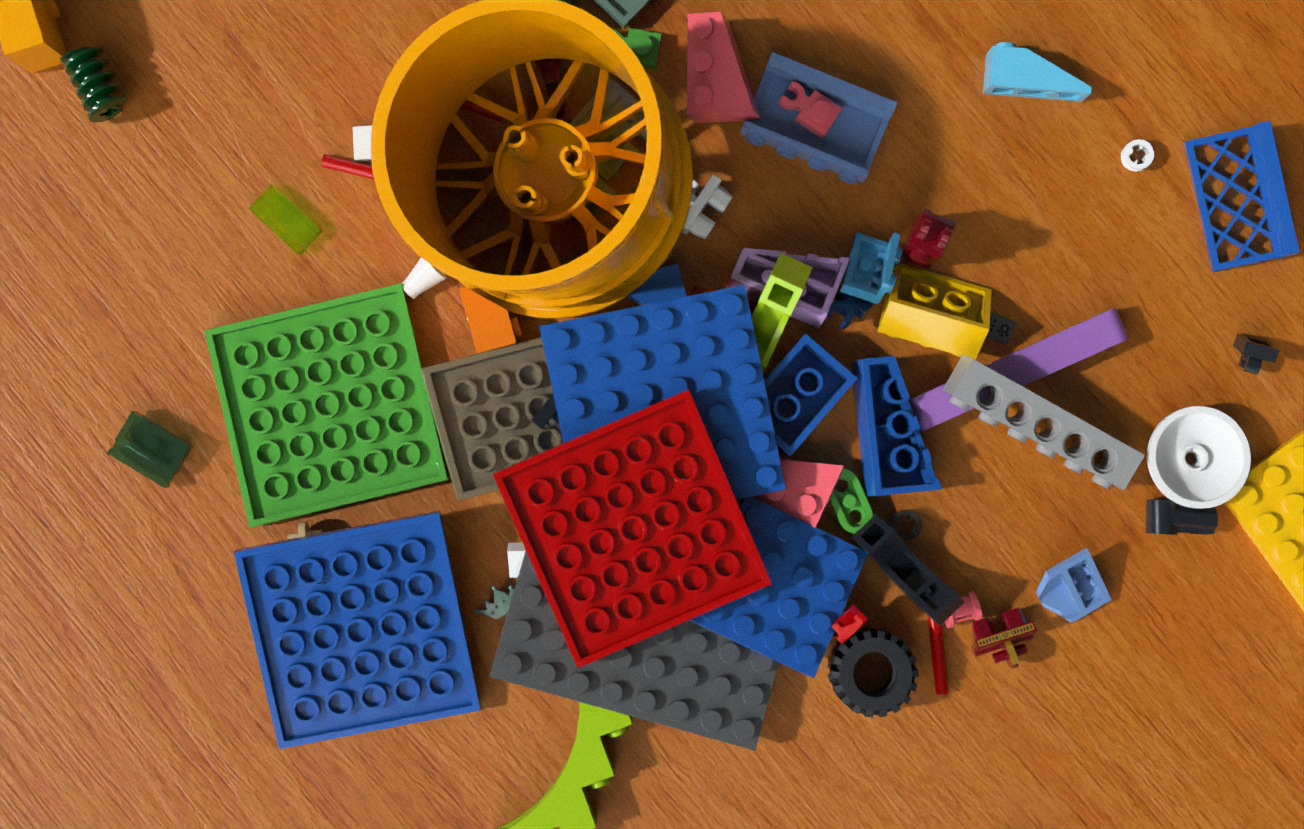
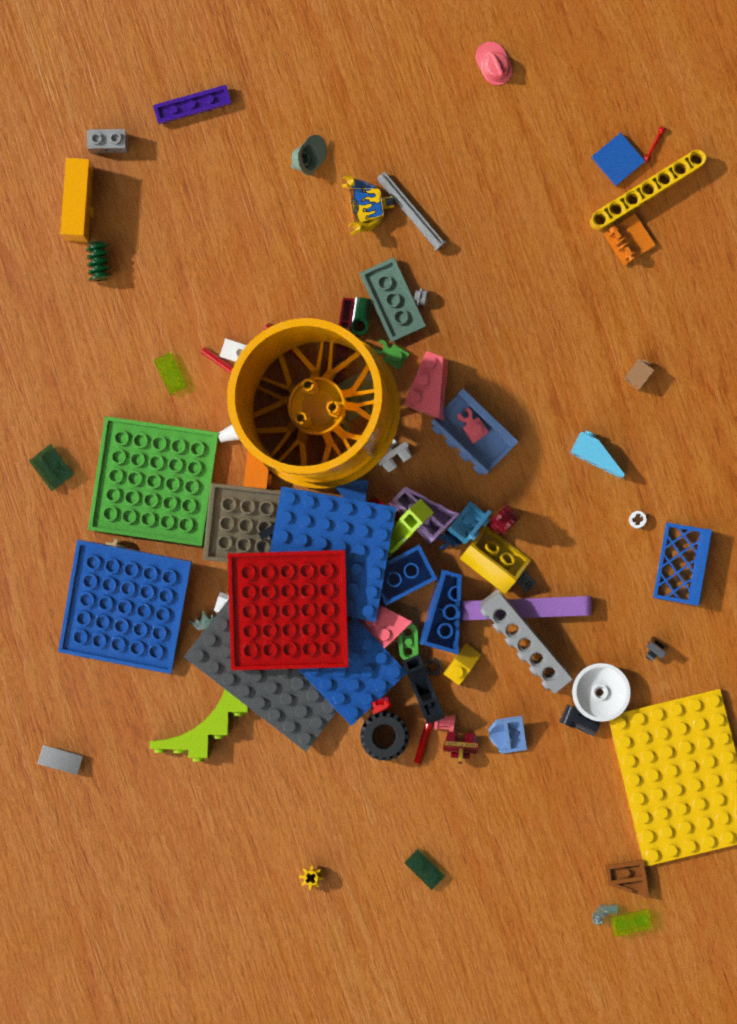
camera: 25 degrees right, 0 degrees up
(952, 505) = (462, 664): none -> yellow slope

